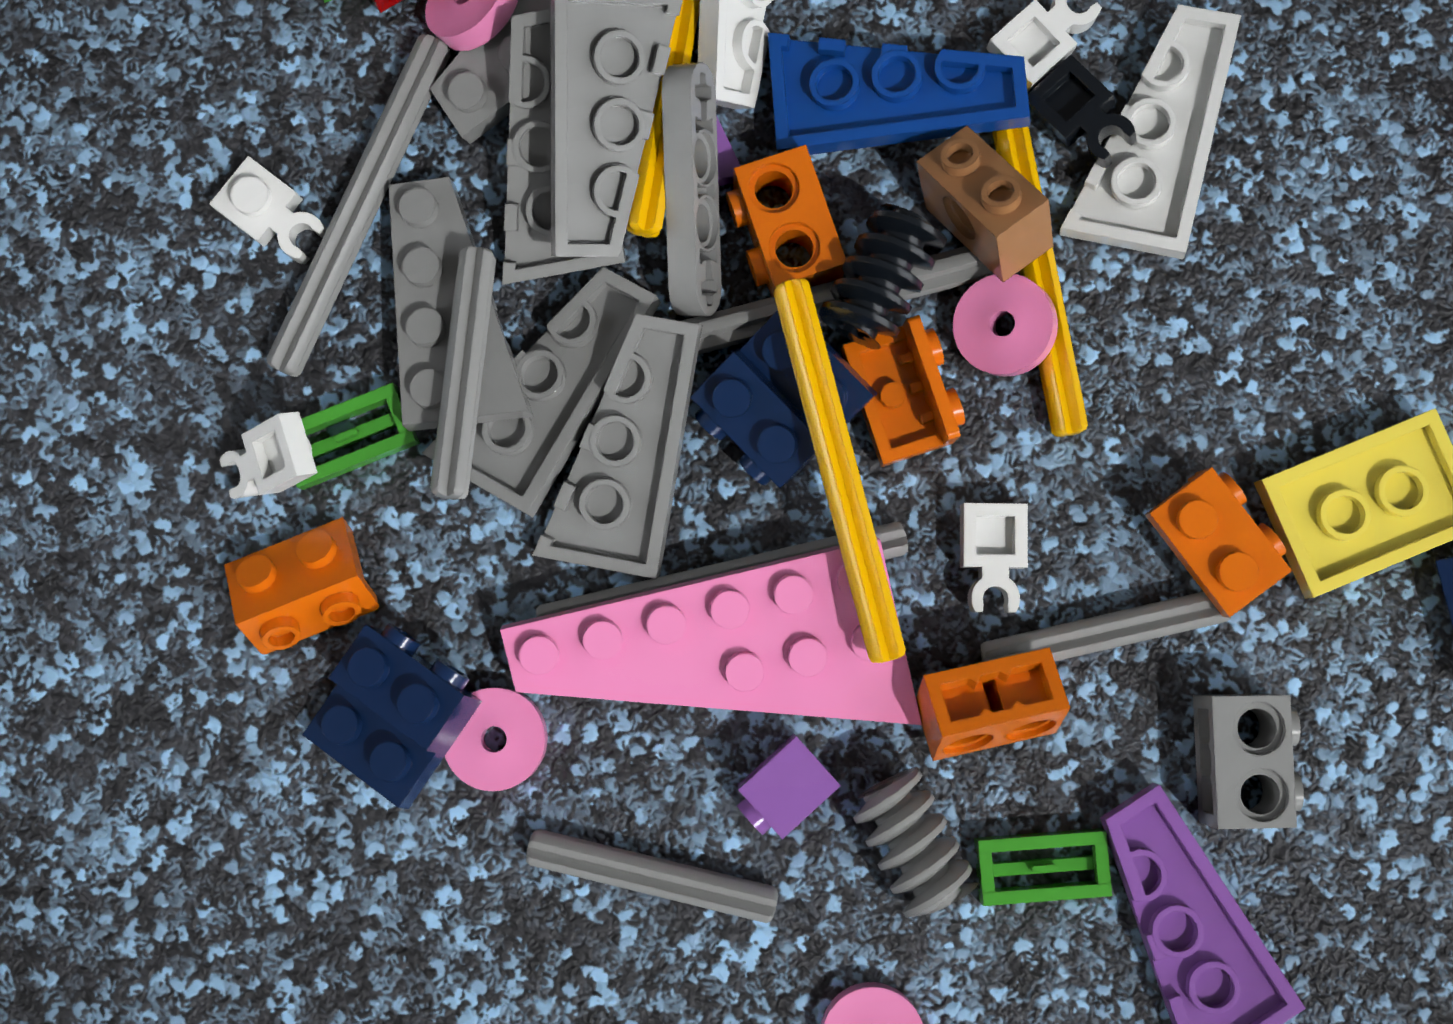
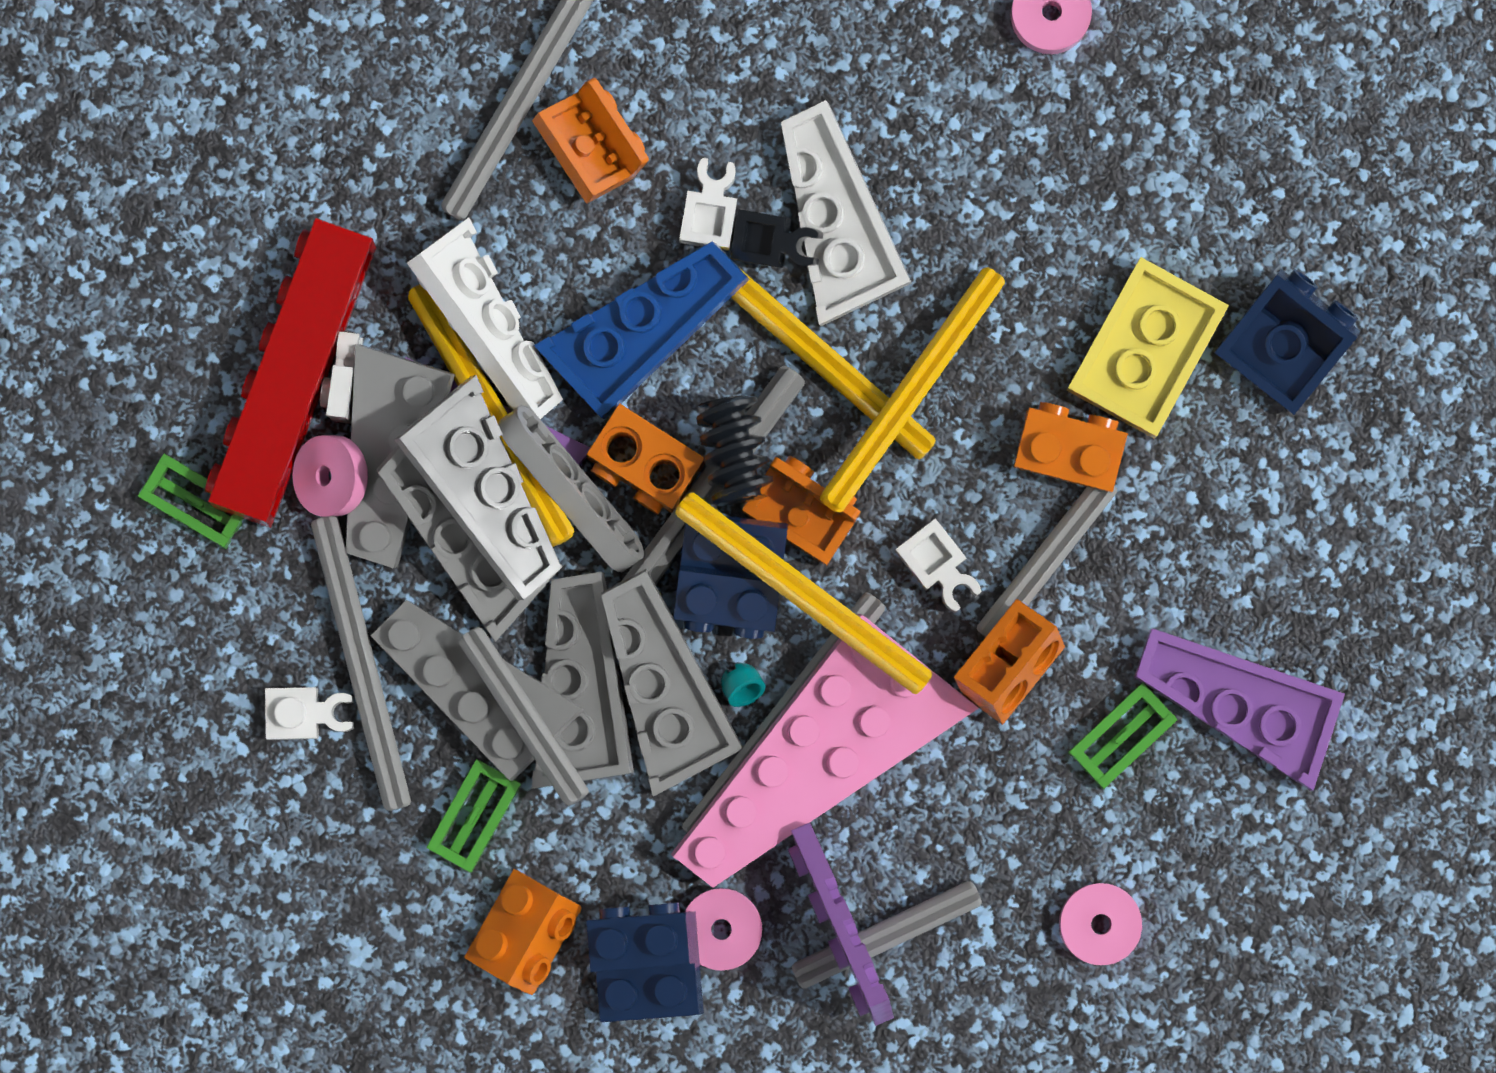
camera: 40 degrees left, 0 degrees up
(273, 457) = (443, 865): white plate -> none
(600, 859) = (846, 947): none -> medium lavender wing
(706, 516) = (742, 685): none -> teal hinge
(785, 788) = (925, 813): medium lavender brick -> none
(915, 844) = (1030, 785): light grey piece -> none
(986, 203) = (761, 352): medium nougat brick -> none
(1027, 343) = (811, 421): bright pink piece -> none
(1102, 359) = (912, 390): none -> yellow axle
(1227, 762) = (1183, 579): light grey brick -> none

